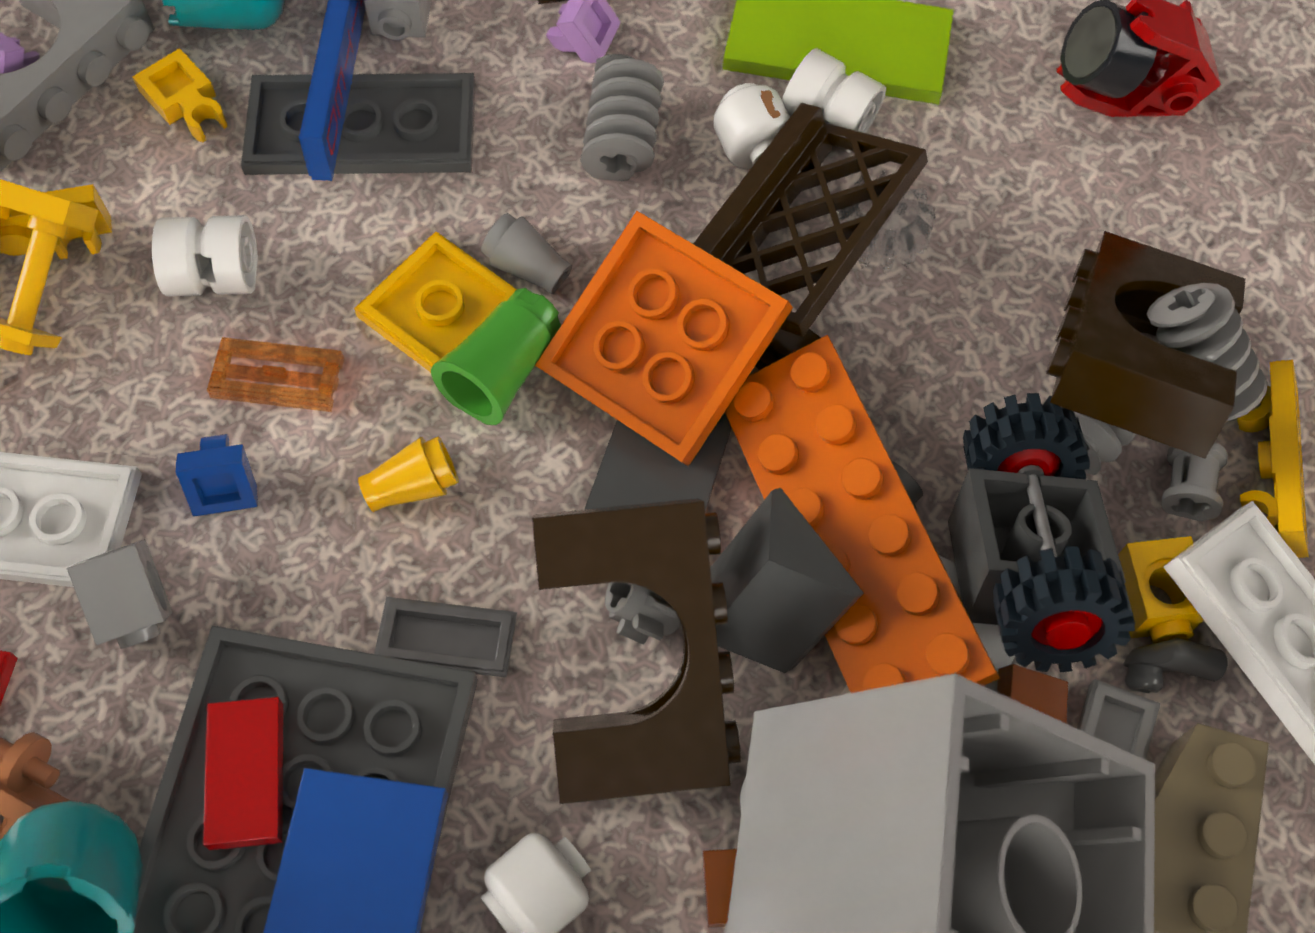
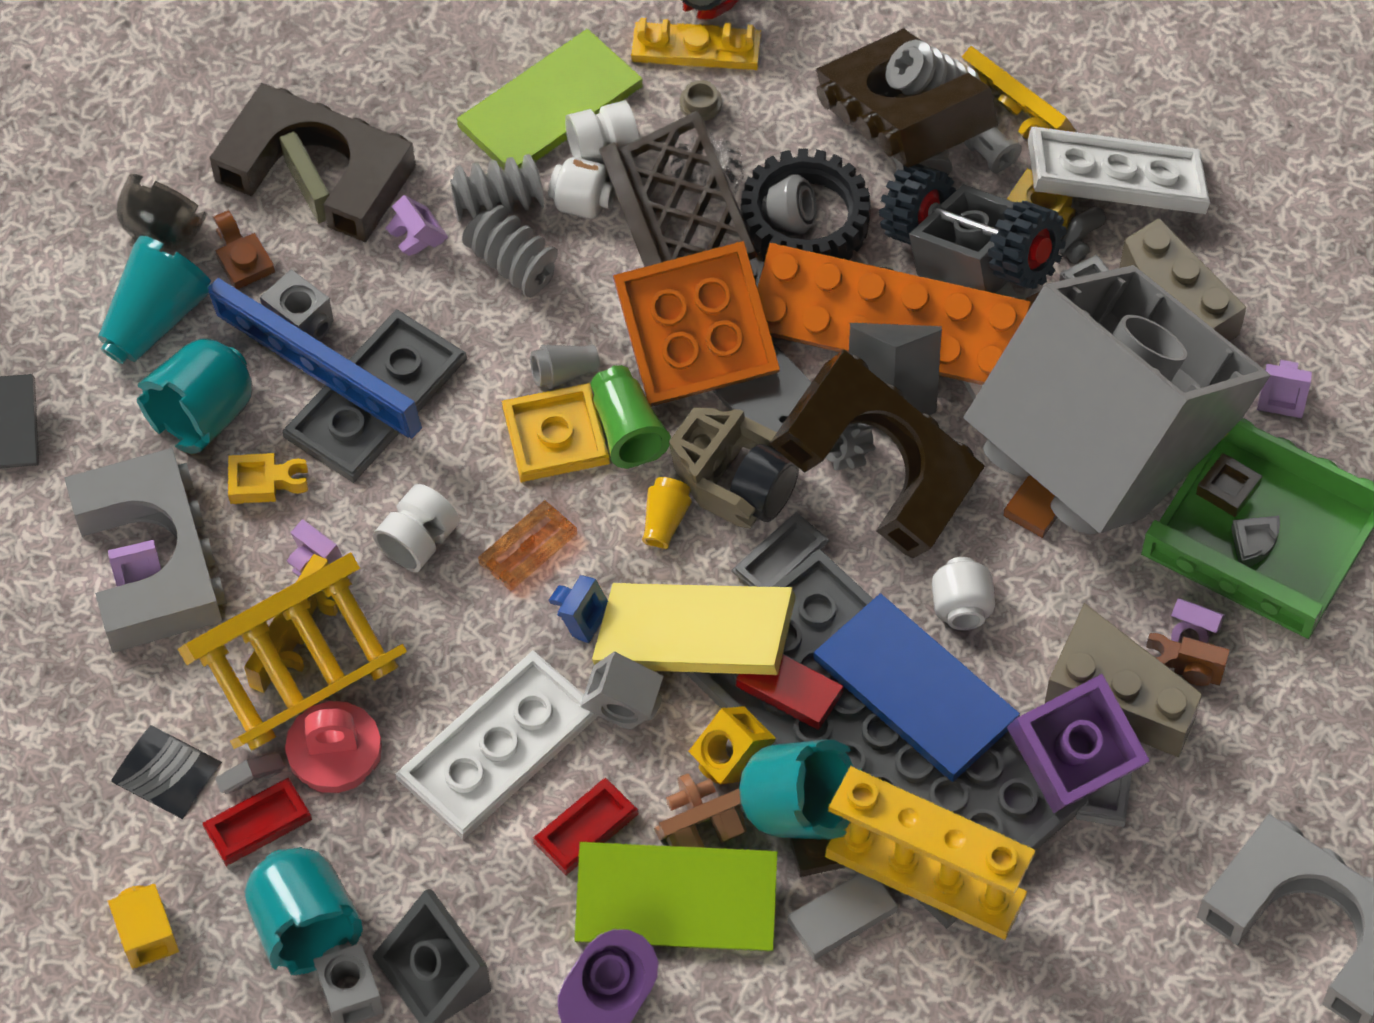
camera: 50 degrees left, 5 degrees down
(119, 763) = (747, 738): none -> yellow brick
(120, 187) = (310, 542): none -> lavender tile
(257, 617) = (697, 627): none -> light yellow tile
(497, 542) = (707, 447): none -> dark tan piece
(683, 54) = (496, 186): none -> light grey piece
(914, 330) = (791, 205): none -> light grey cone
(939, 291) = (816, 171): none -> black tyre
(967, 162) = (703, 97): none -> dark tan plate
(1033, 114) = (696, 45): none -> yellow plate

